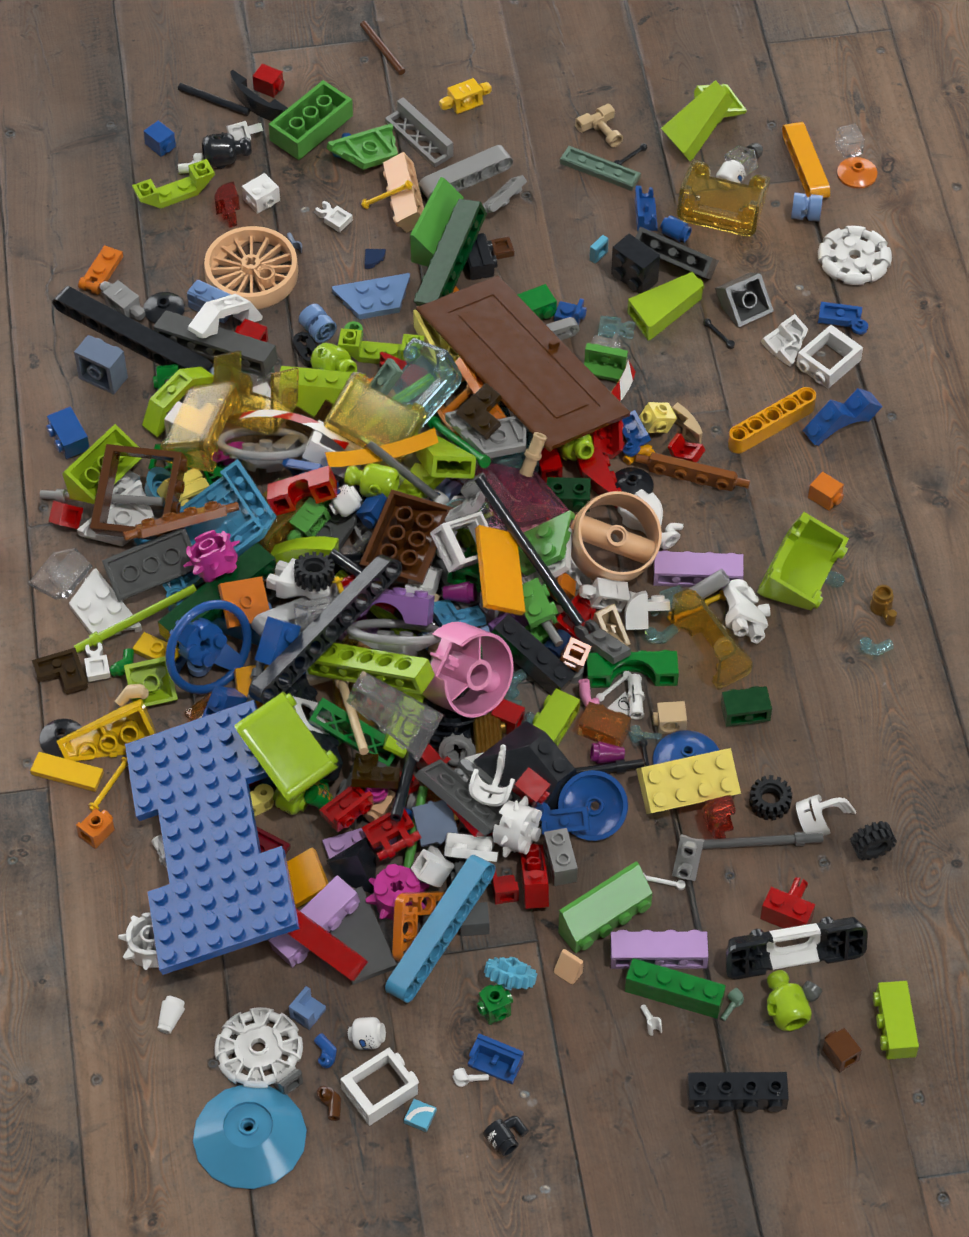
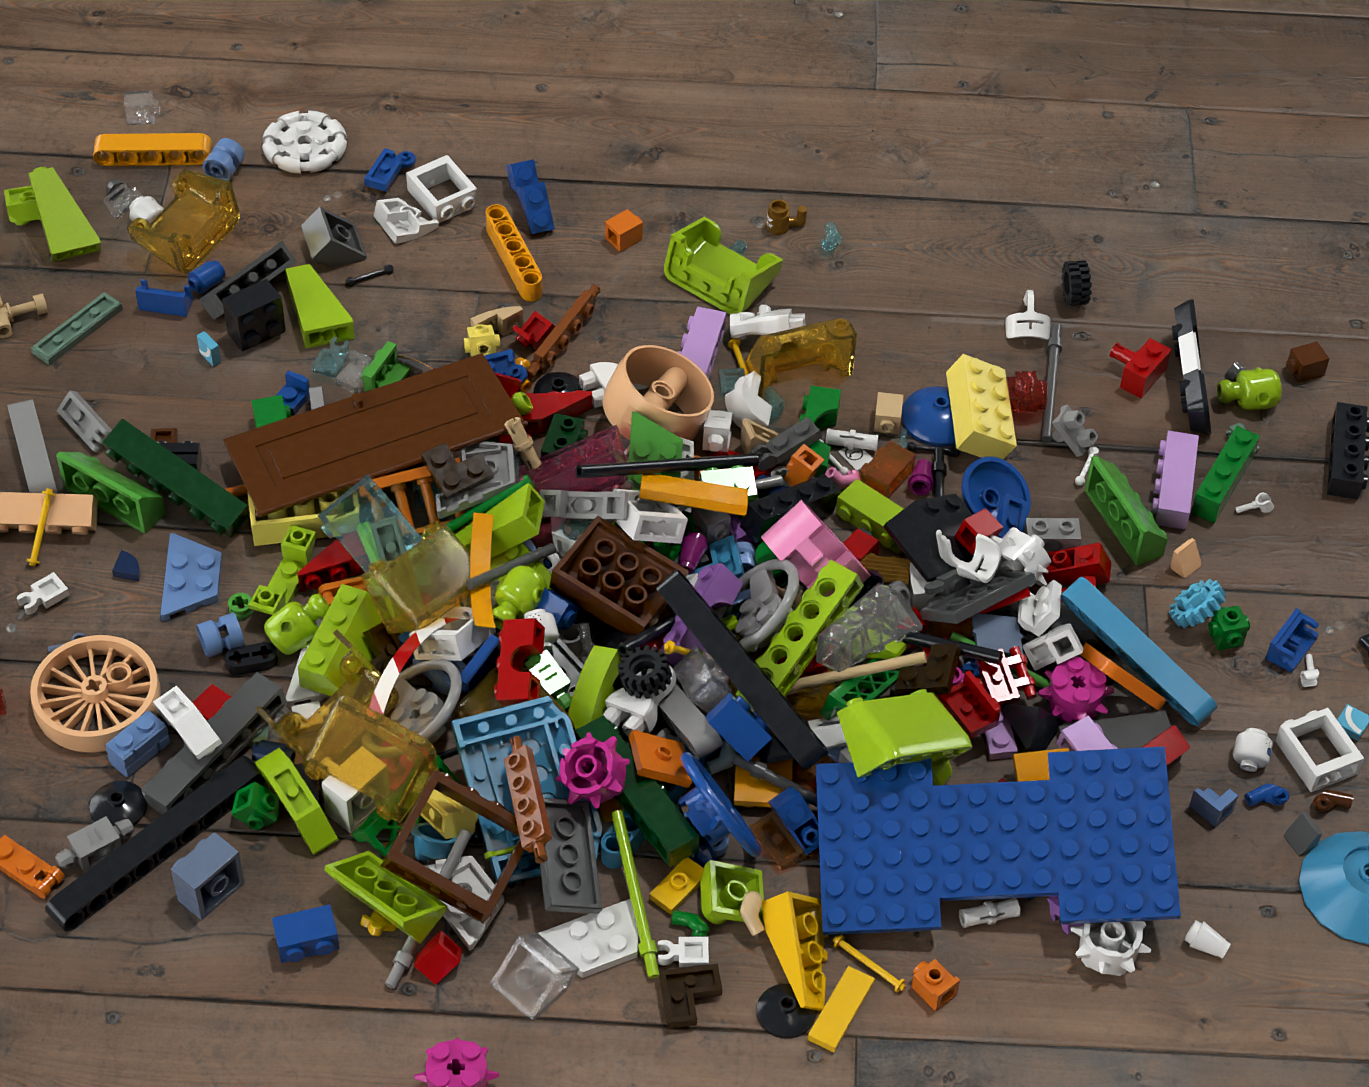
camera: 80 degrees left, 5 degrees down
(258, 1061) = (1253, 872): white plate -> none
(643, 147) = (62, 283): black hinge -> none
(711, 583) = (729, 344): light grey piece -> none
(746, 706) = (890, 347): dark green brick -> none
(770, 786) = (1004, 345): black tyre -> none
(857, 172) = (182, 117): orange dish -> none
(896, 1020) = (1277, 314): lime brick -> none

